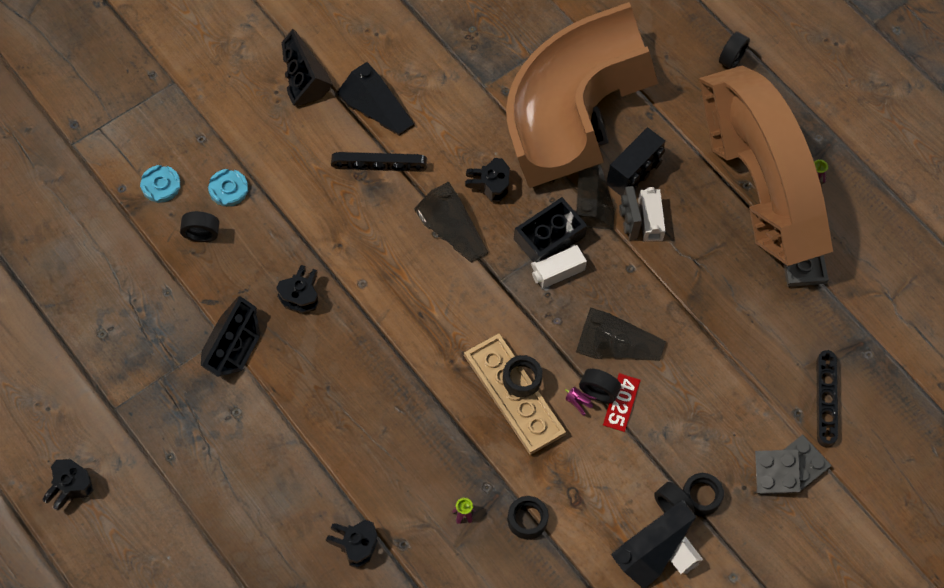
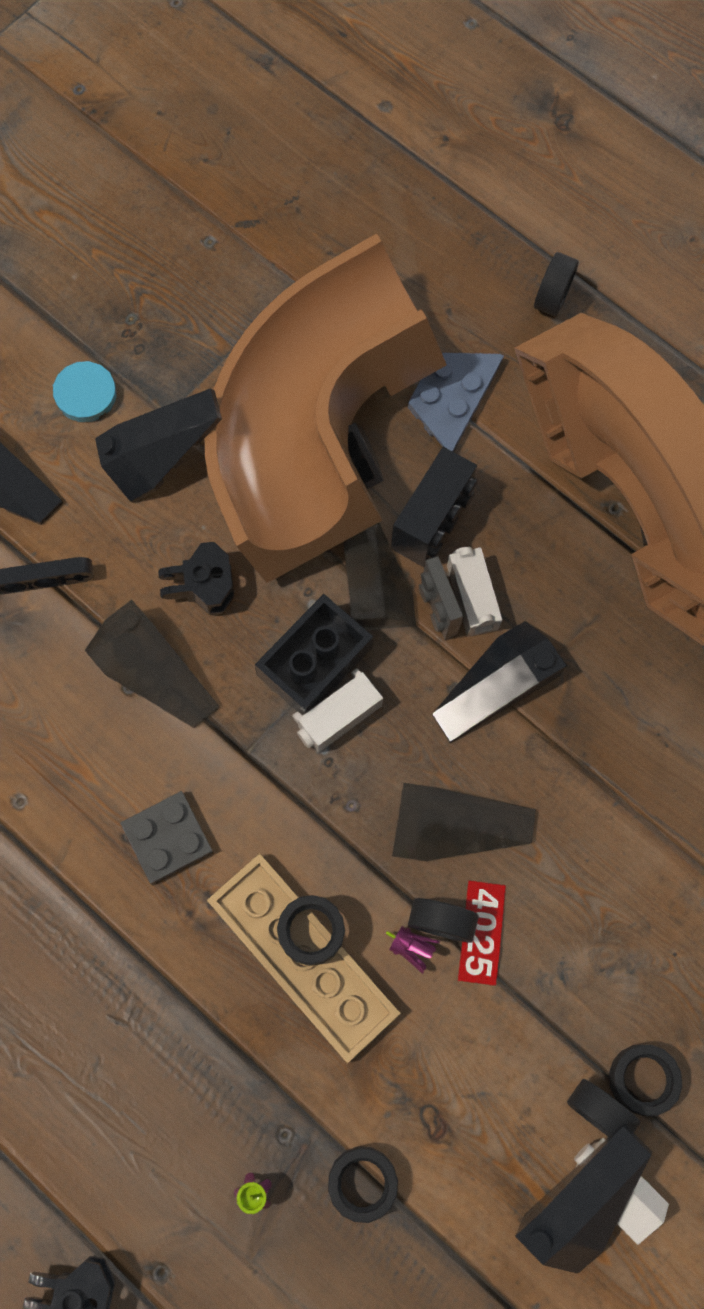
camera: 10 degrees left, 10 degrees up
(437, 65) = (84, 391): none -> medium azure tile
(445, 317) = (166, 837): none -> dark grey plate
(472, 99) = (150, 445): none -> black wedge
(660, 103) = (452, 395): none -> sand blue wing
(661, 265) = (505, 674): none -> black wedge

